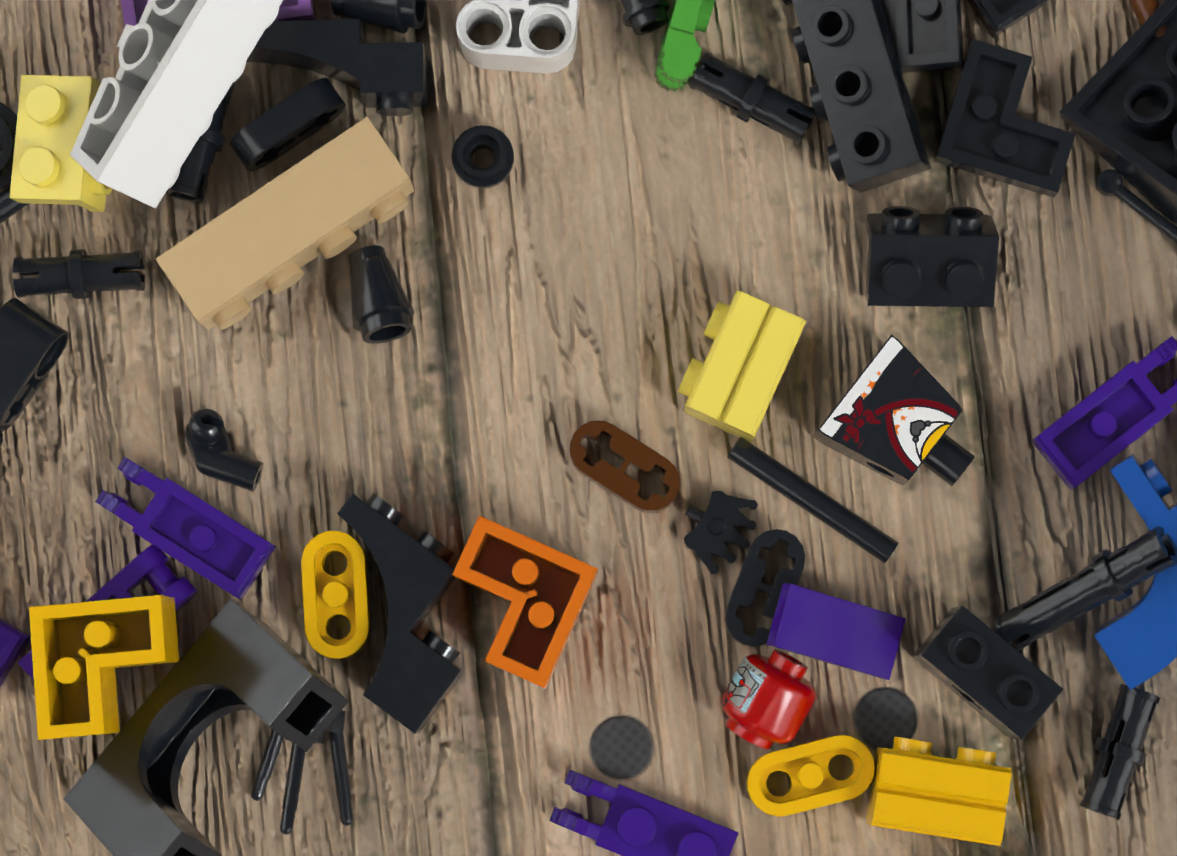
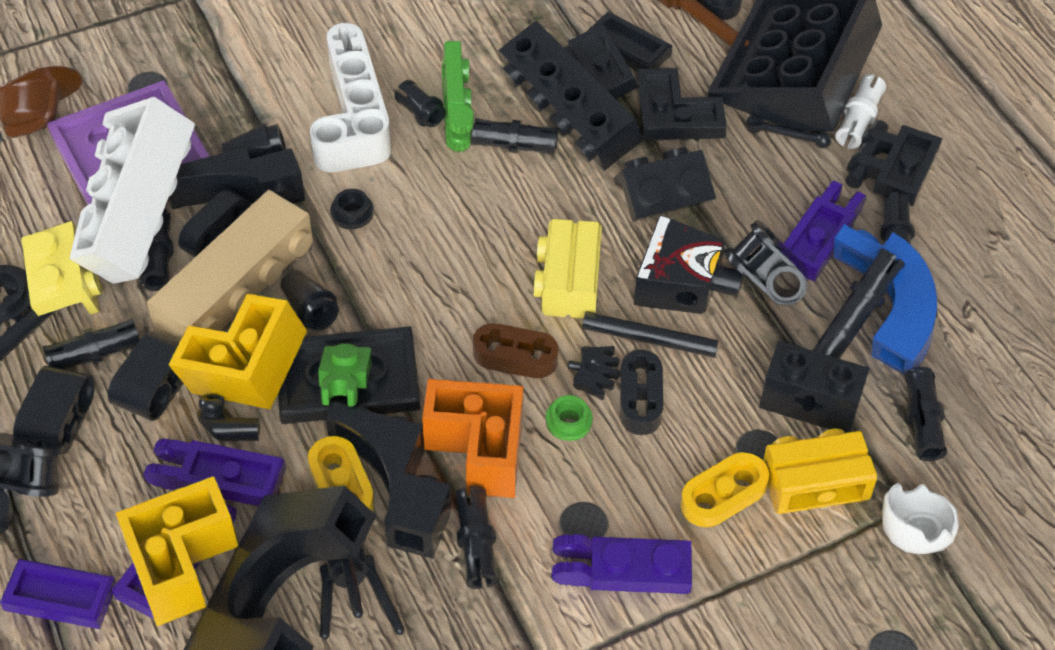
camera: 25 degrees left, 30 degrees down
(142, 352) = (145, 379): none -> black beam
(260, 394) = (246, 361): none -> yellow brick
(382, 444) = (343, 371): none -> bright green plate
(395, 427) = (390, 384): none -> black tile
(476, 734) = (476, 537): none -> black pin
(660, 578) = (569, 408): none -> bright green plate
(768, 699) = (674, 449): red head -> none
(836, 631) = (701, 396): dark purple tile -> none
(1012, 470) = (768, 262): none -> black piece

